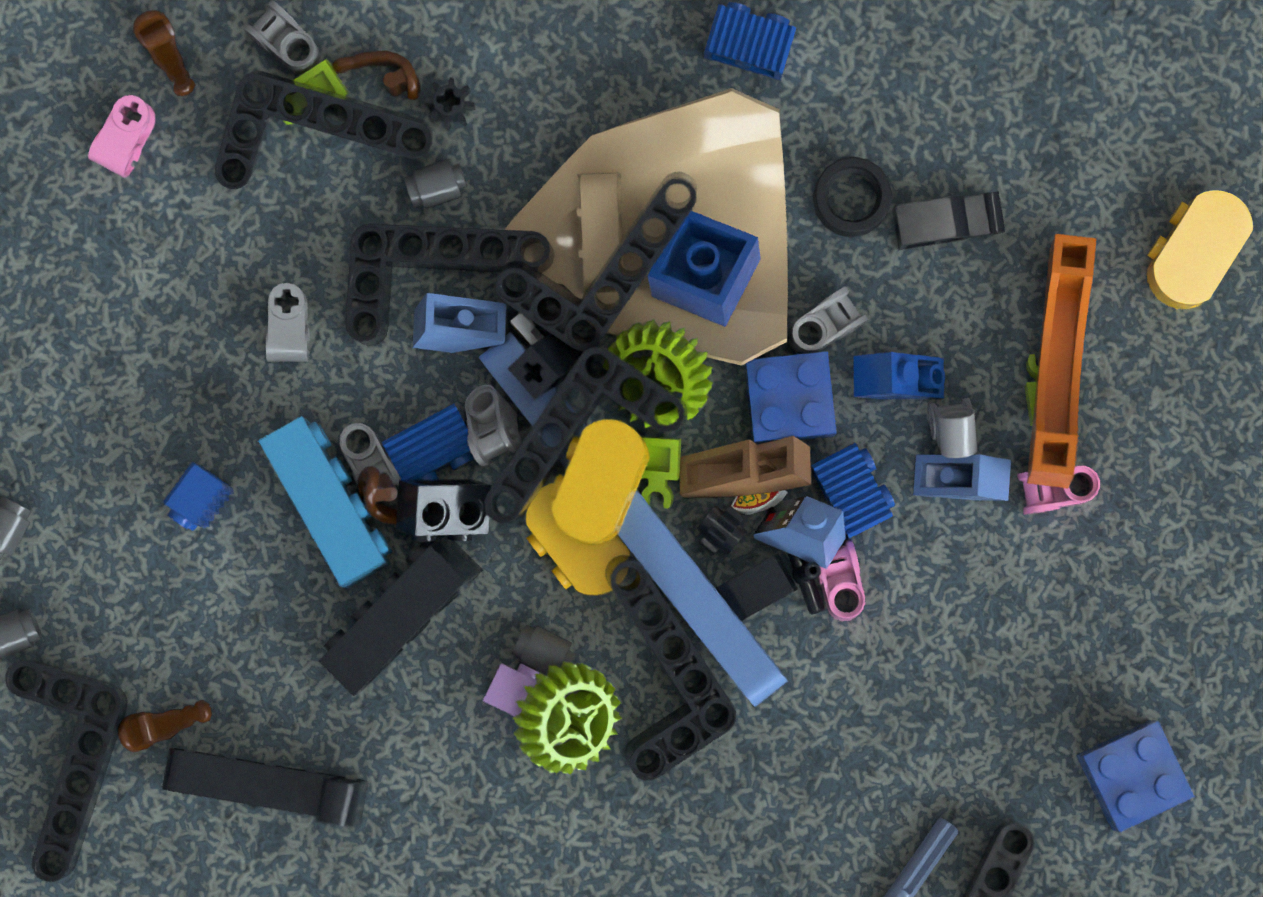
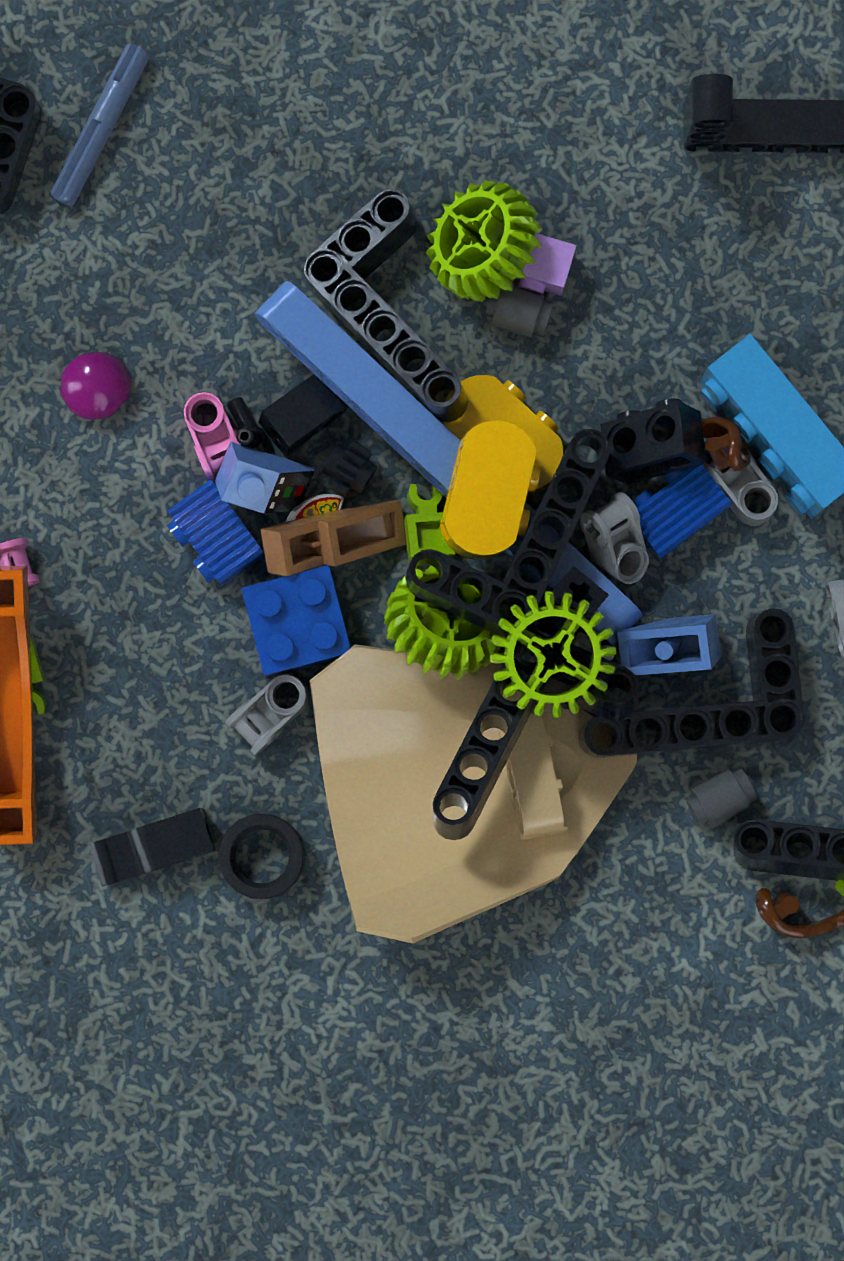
camera: 175 degrees right, 0 degrees up
(398, 614) = (679, 324): black wedge -> none
(457, 112) = (730, 899): black gear -> none
(588, 289) = (586, 675): none -> lime gear
(705, 268) = (409, 744): blue brick -> none
(750, 40) = (400, 1013): blue brick -> none
(898, 376) = (182, 665): blue slope -> none
(941, 646) = (95, 385): none -> magenta hair
(954, 428) = (114, 614): light grey piece -> none
(962, 478) = (98, 566): medium blue slope -> none

